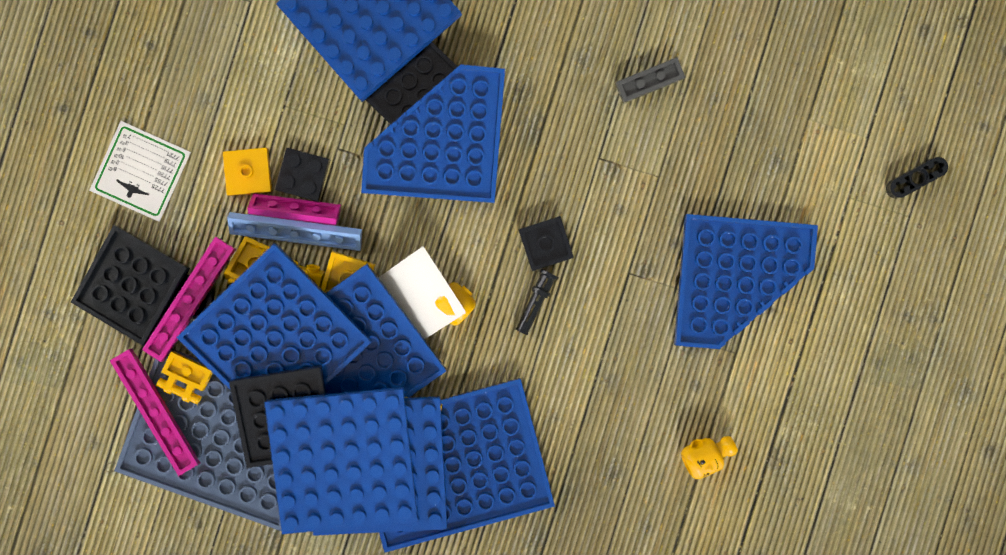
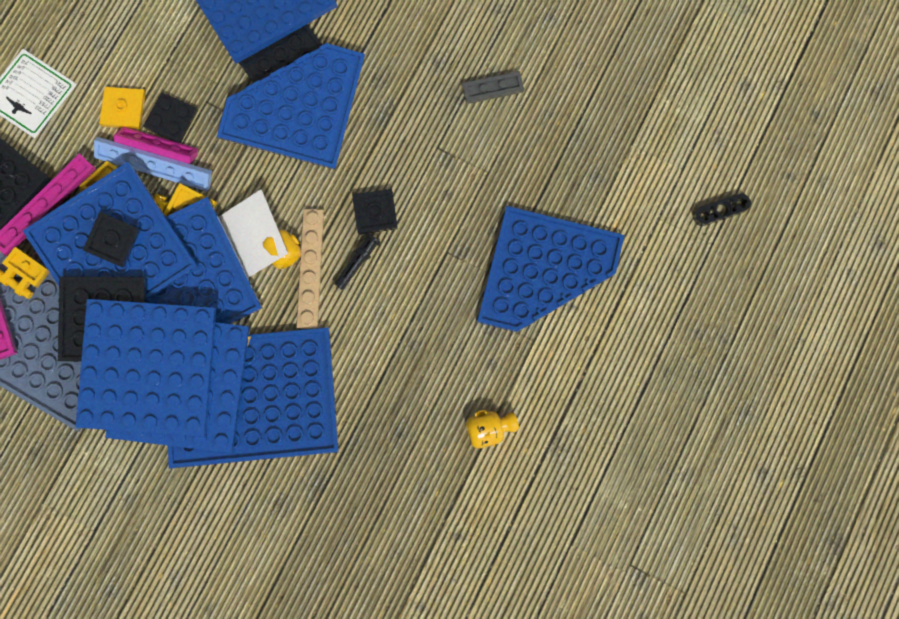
camera: 10 degrees right, 10 degrees down
(275, 332) = (111, 239): none -> black plate
(488, 317) = (310, 269): none -> tan plate

